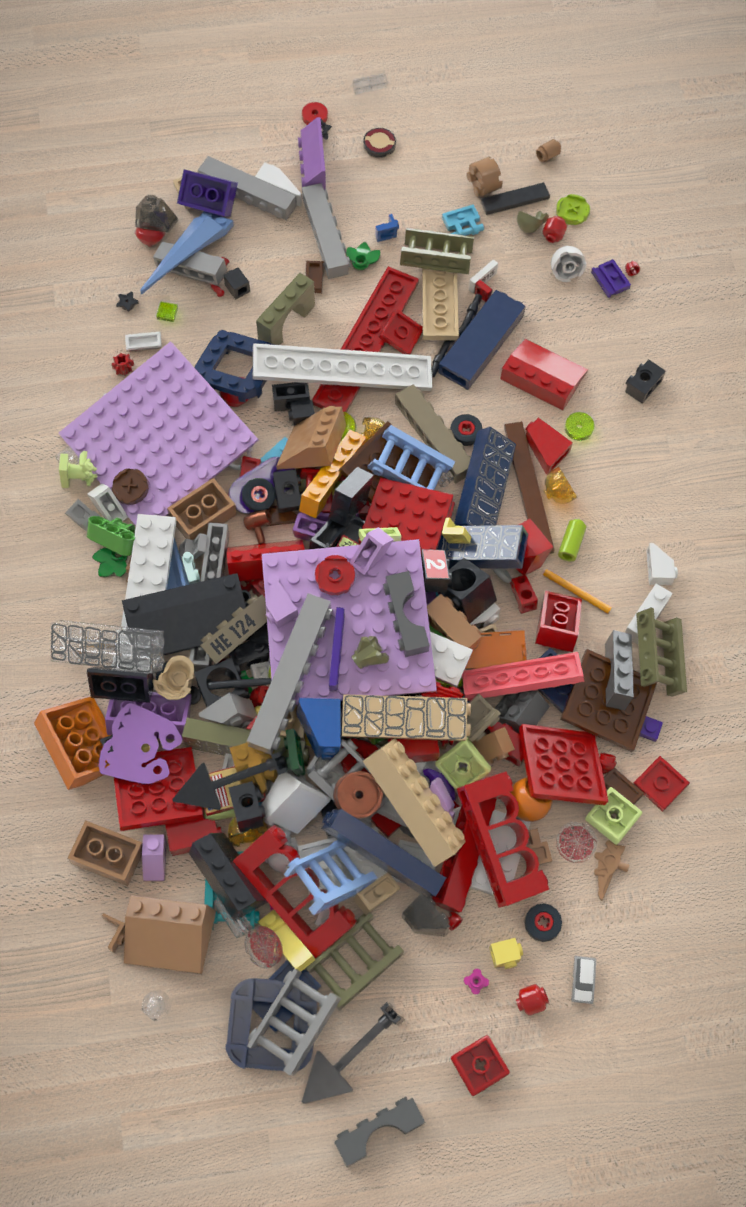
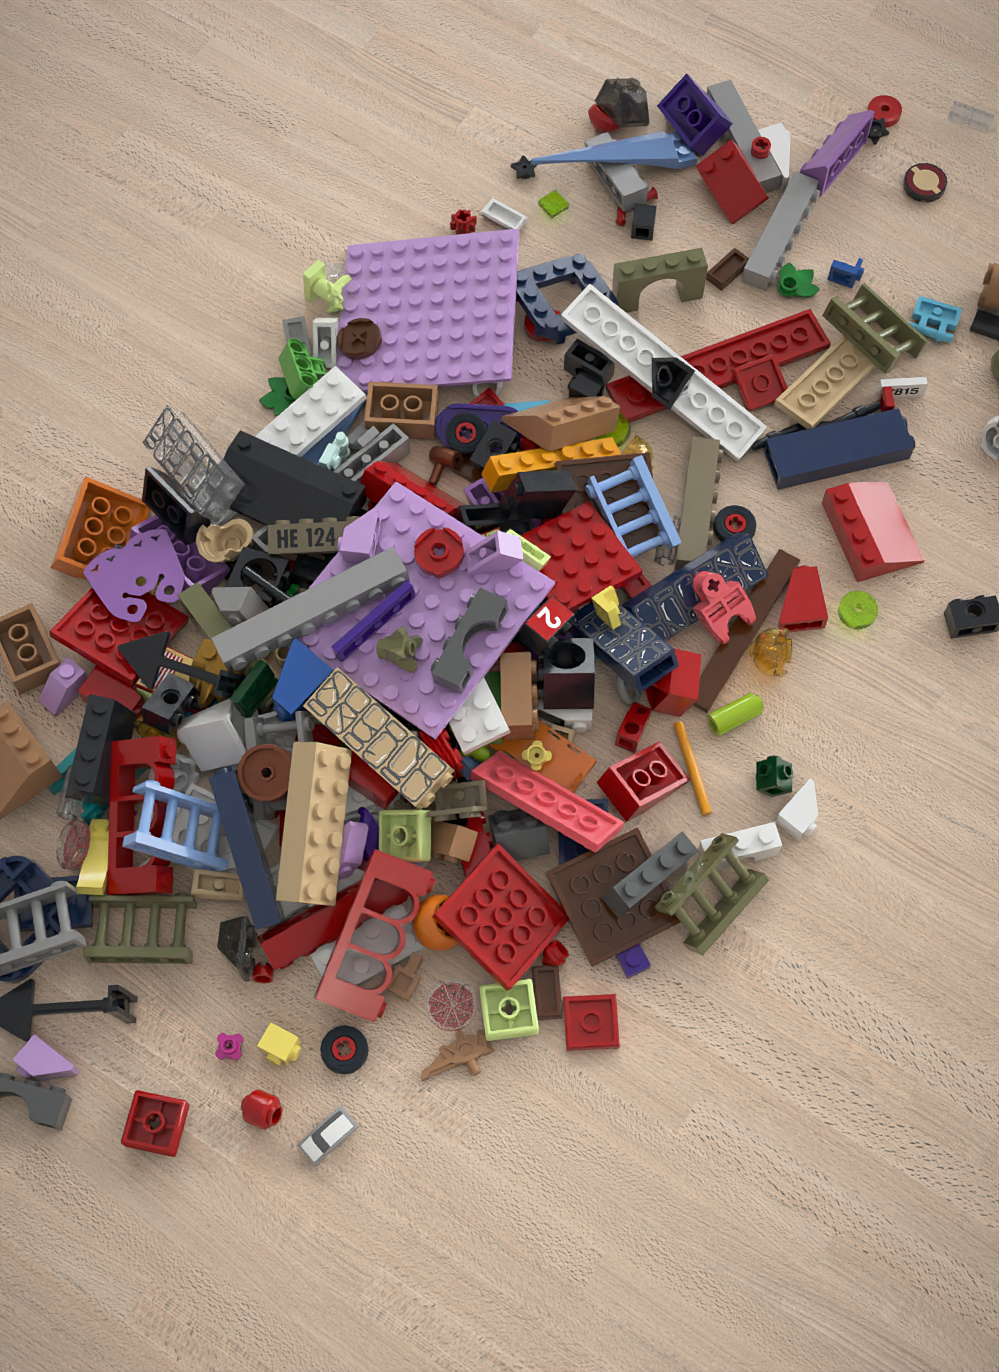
camera: 45 degrees right, 0 degrees up
(268, 182) = (759, 153): none -> red bush
(270, 219) = (732, 181): none -> red slope
(354, 368) = (669, 379): none -> black slope
(375, 1092) = (42, 1061): none -> lavender slope
(493, 651) = (529, 754): none -> light yellow plate
(508, 481) = (720, 604): none -> coral piece
(628, 558) = (774, 776): none -> dark green brick

